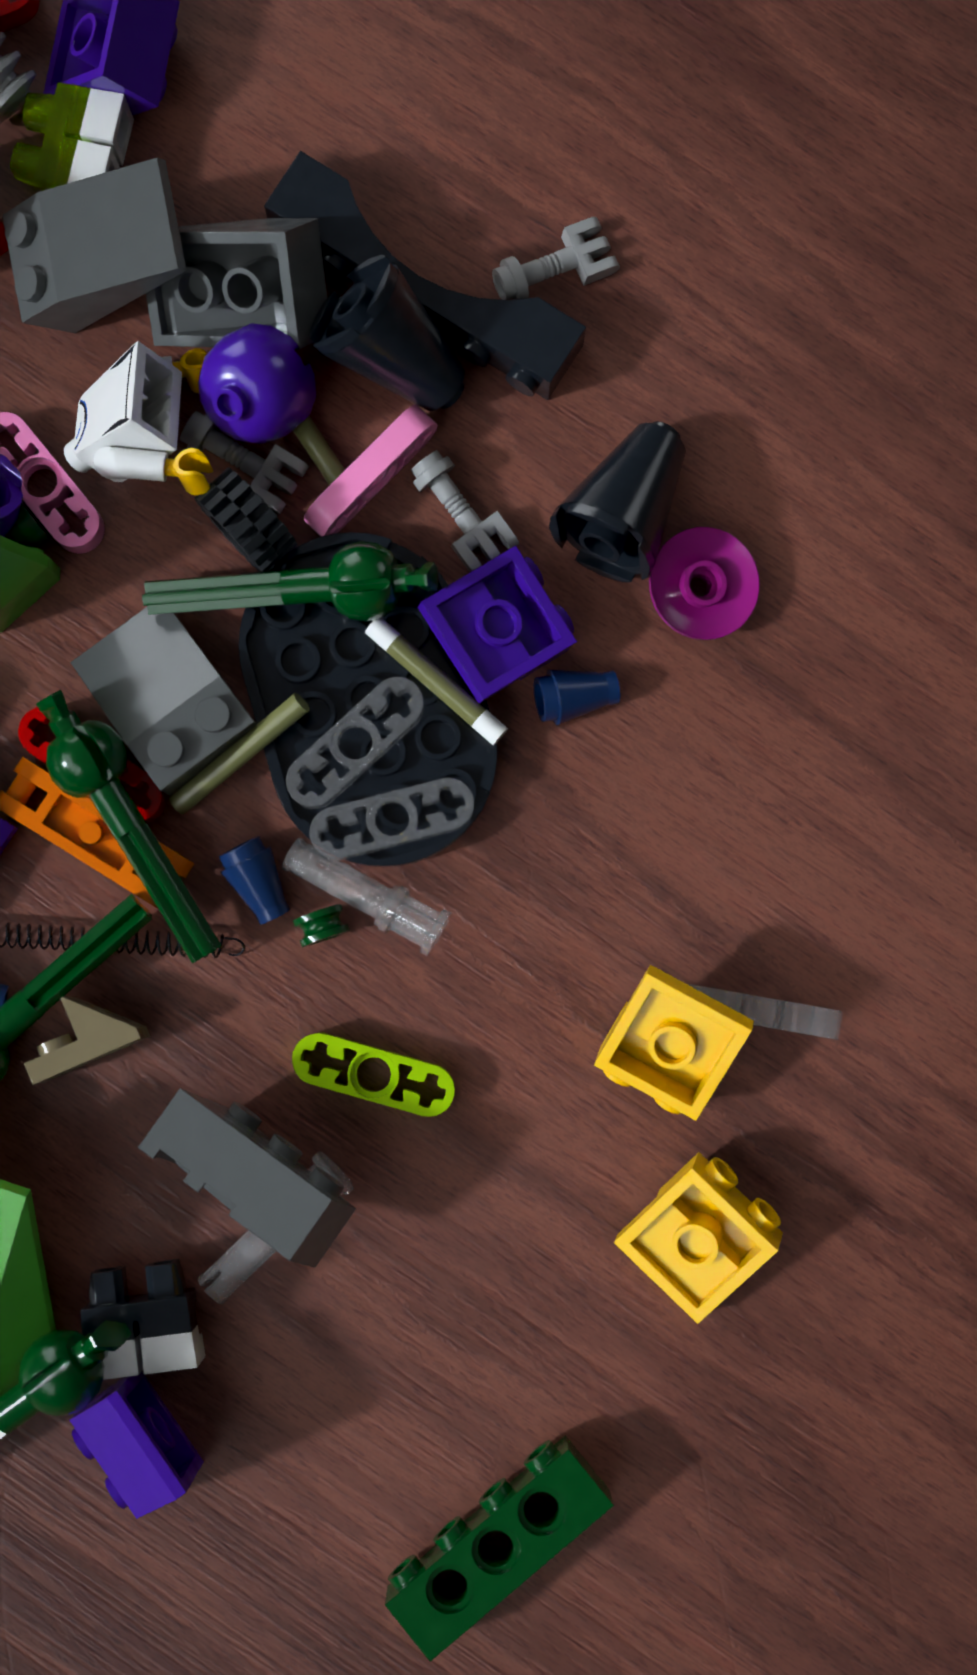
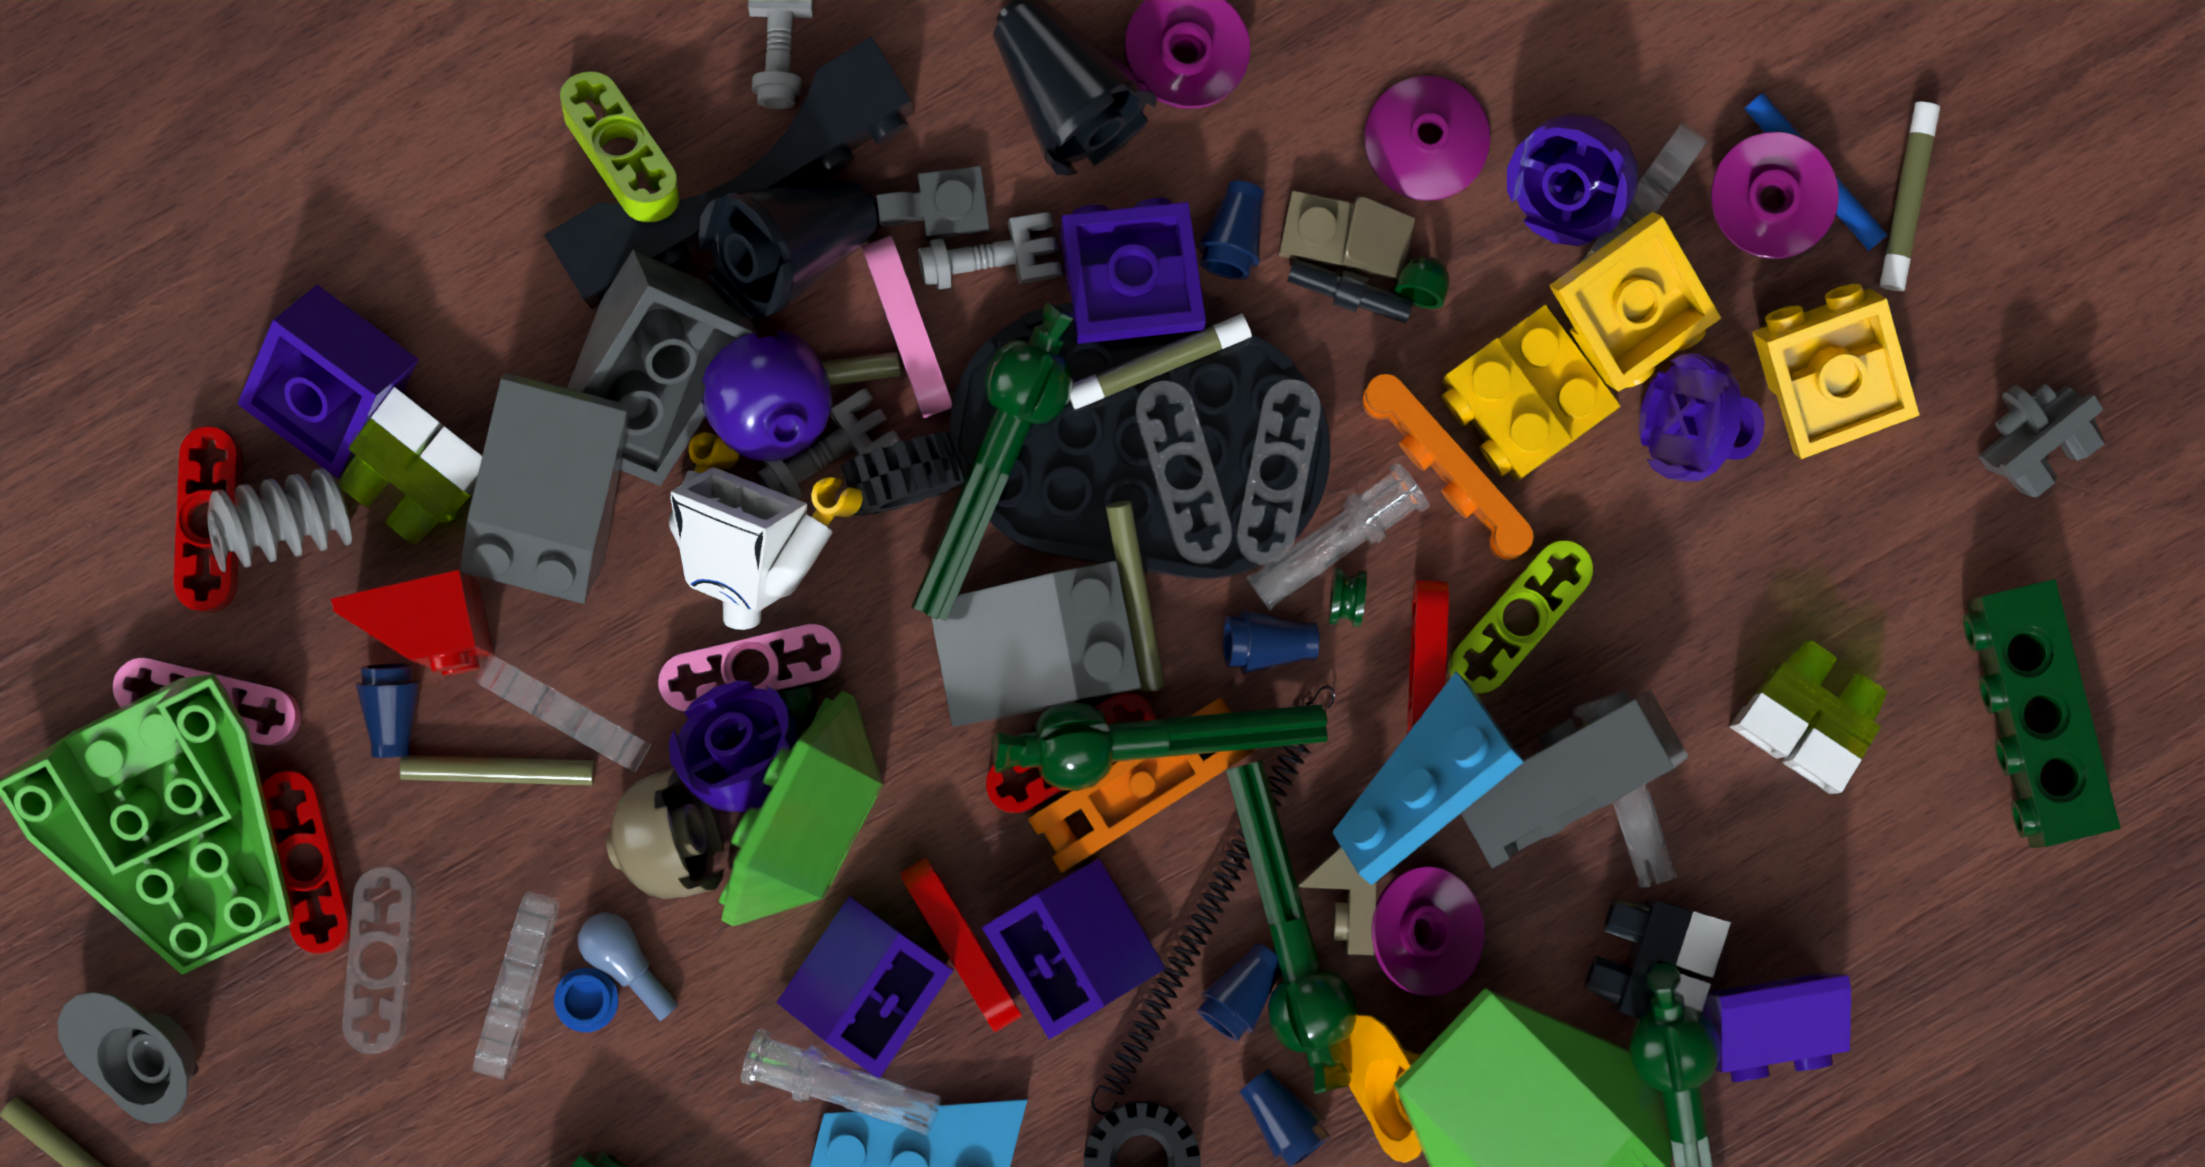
camera: 65 degrees left, 0 degrees up
(80, 1142) = (1449, 929): none -> magenta dish
(188, 1060) = (1427, 782): none -> dark azure wing
(290, 1019) = (1427, 646): none -> red beam
(382, 184) = (619, 170): none -> lime beam
(394, 1353) = (1789, 702): none -> hips
(457, 978) = (1432, 446): none -> orange plate
(486, 456) = (948, 204): none -> dark grey plate
(558, 993) = (1528, 395): none -> yellow plate
(573, 809) = (1350, 290): none -> black bar
(601, 1139) = (1697, 419): none -> dark purple tile
(608, 865) = (1424, 282): none -> dark green hinge
(617, 786) = (1347, 235): none -> dark tan slope
(706, 831) = (1419, 168): none -> magenta dish
(734, 1429) = (2035, 428): none -> dark grey hips
(751, 943) = (1573, 178): none -> dark purple cylinder
(849, 1124) = (1800, 177): none -> magenta dish
(858, 1141) = (1849, 208): none -> blue bar
(876, 1229) = (1909, 196): none -> olive bar

